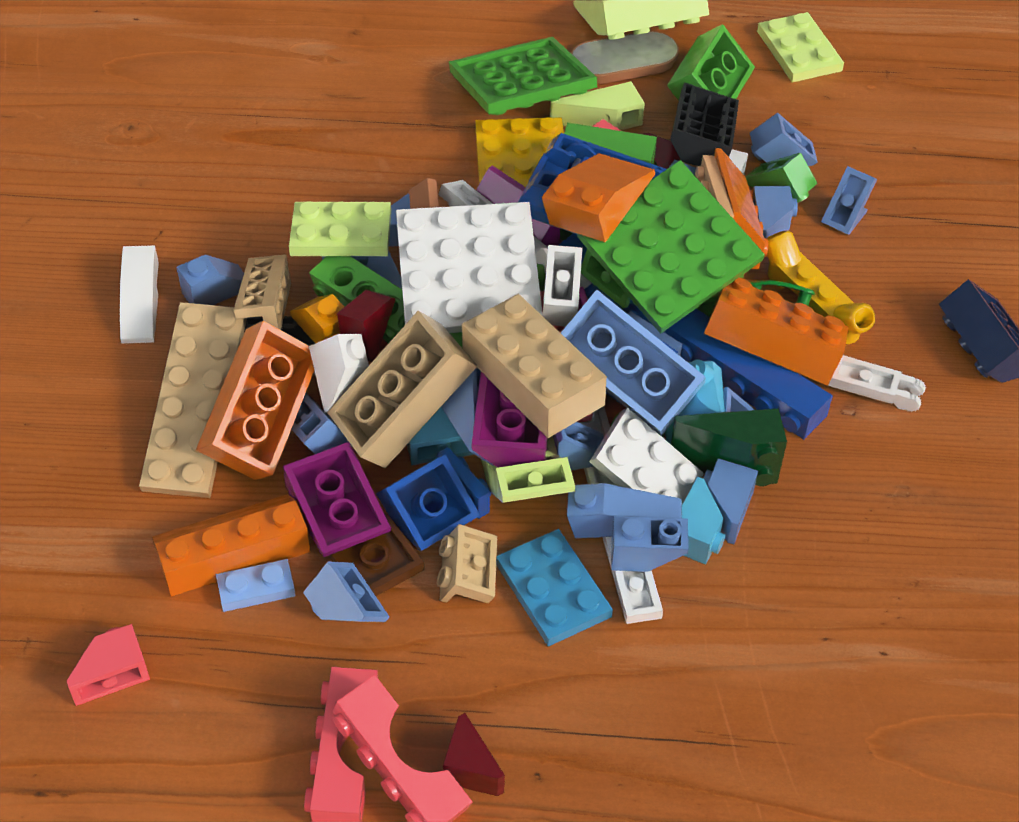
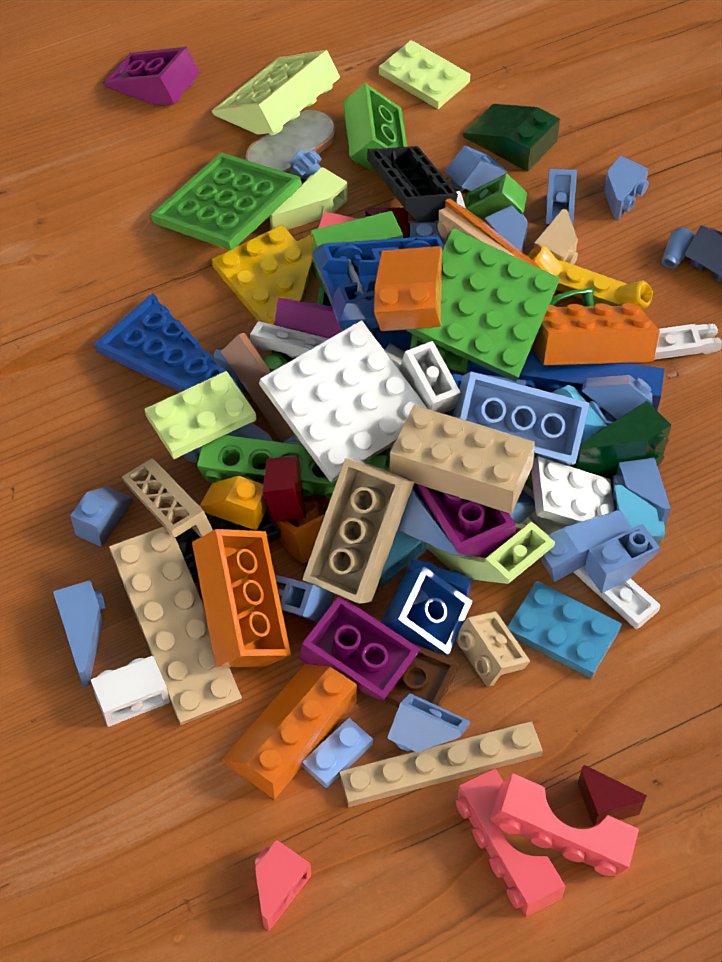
camera: 30 degrees left, 5 degrees up
(114, 437) = (130, 690): none -> white brick
(120, 366) = (82, 623): none -> medium blue slope
(138, 294) = (43, 550): white slope -> none
(337, 365) = (290, 537): white slope -> none
(342, 645) = (440, 764): none -> tan plate
(366, 167) = (158, 347): none -> blue wing
(619, 72) = (305, 164): none -> medium blue gear
(761, 392) = (617, 393): none -> medium blue slope
(817, 237) = (560, 238): none -> tan slope
(850, 131) = (515, 133): none -> dark green slope
(926, 218) = (624, 184): none -> medium blue slope
(929, 301) = (676, 247): none -> medium blue cone

